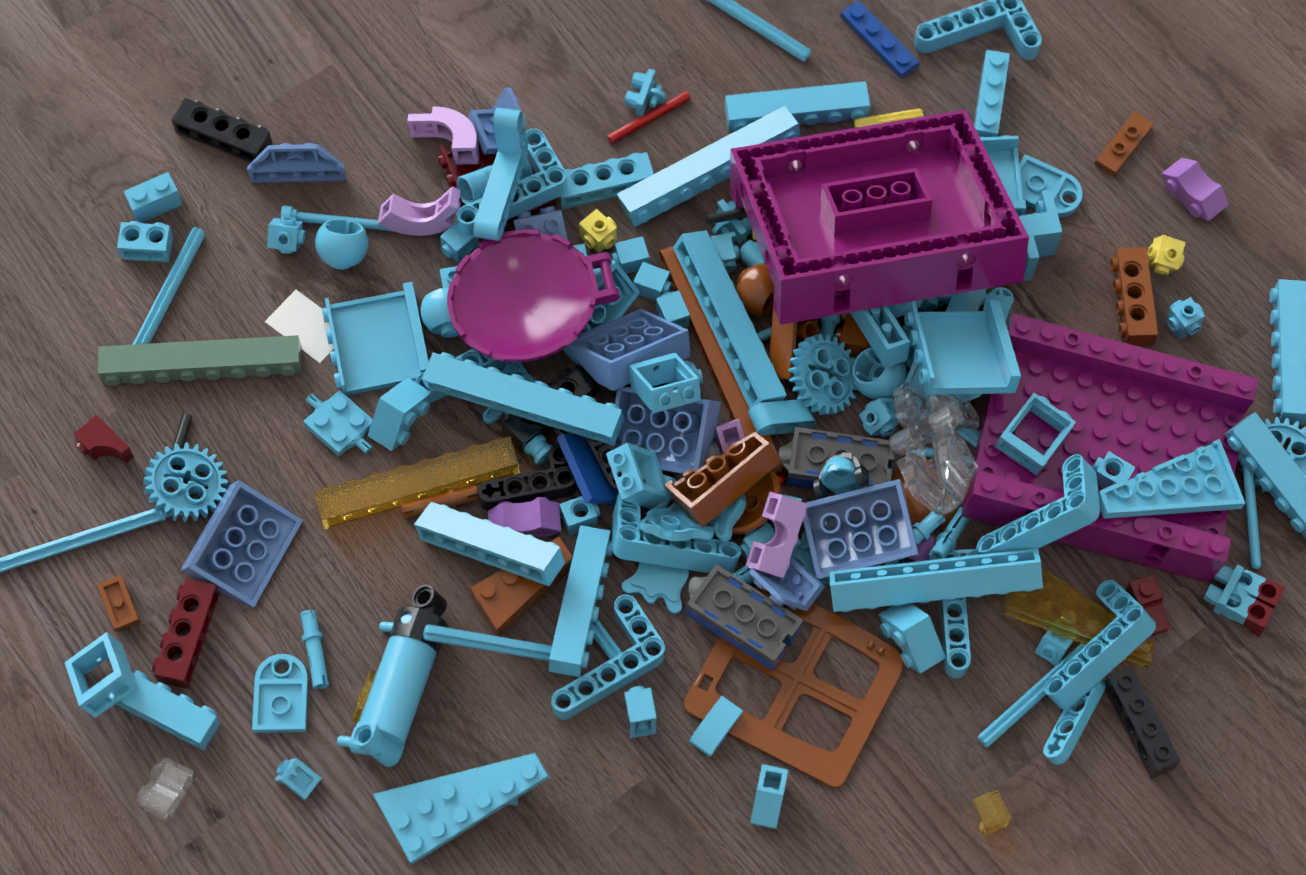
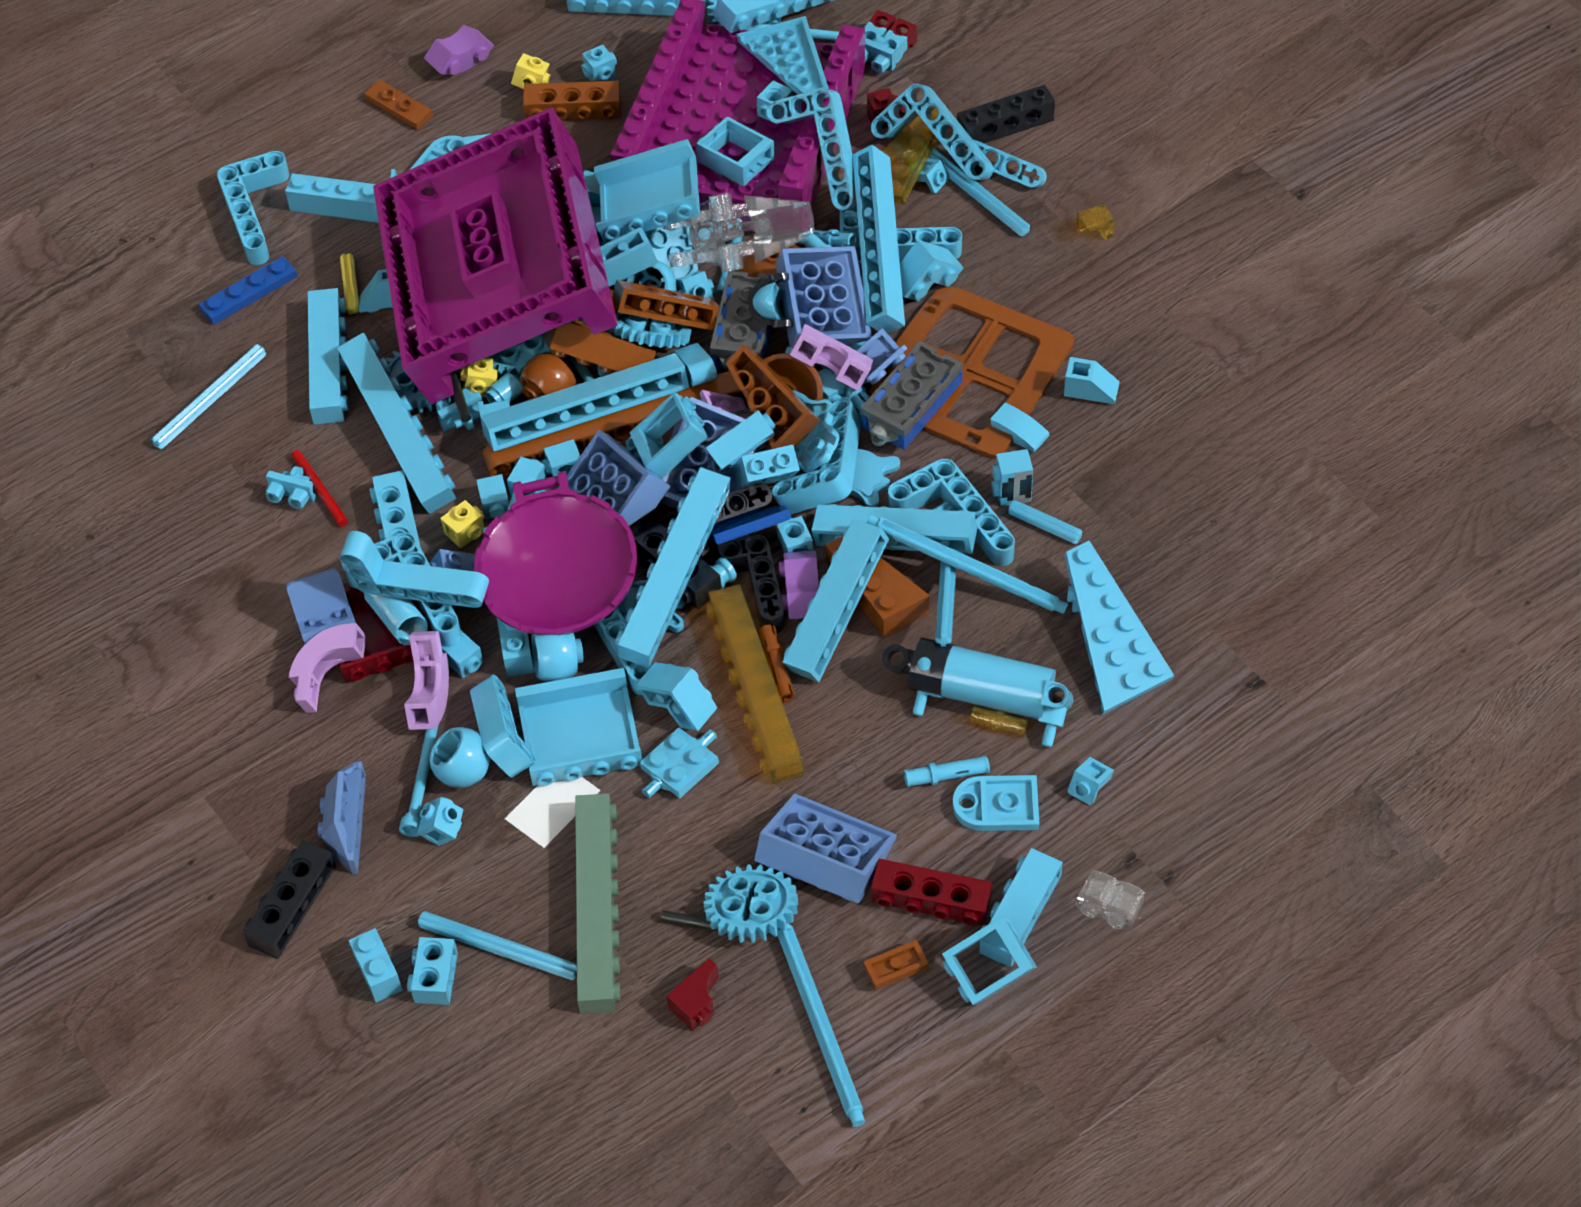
camera: 85 degrees left, 10 degrees down
(373, 267) = (498, 727): none -> medium azure beam
(532, 663) = (969, 565): none -> medium azure piece
(599, 748) = (1045, 522): none -> medium azure axle
(656, 446) = (741, 440): none -> medium azure window
(841, 381) = (665, 305): none -> dark orange brick

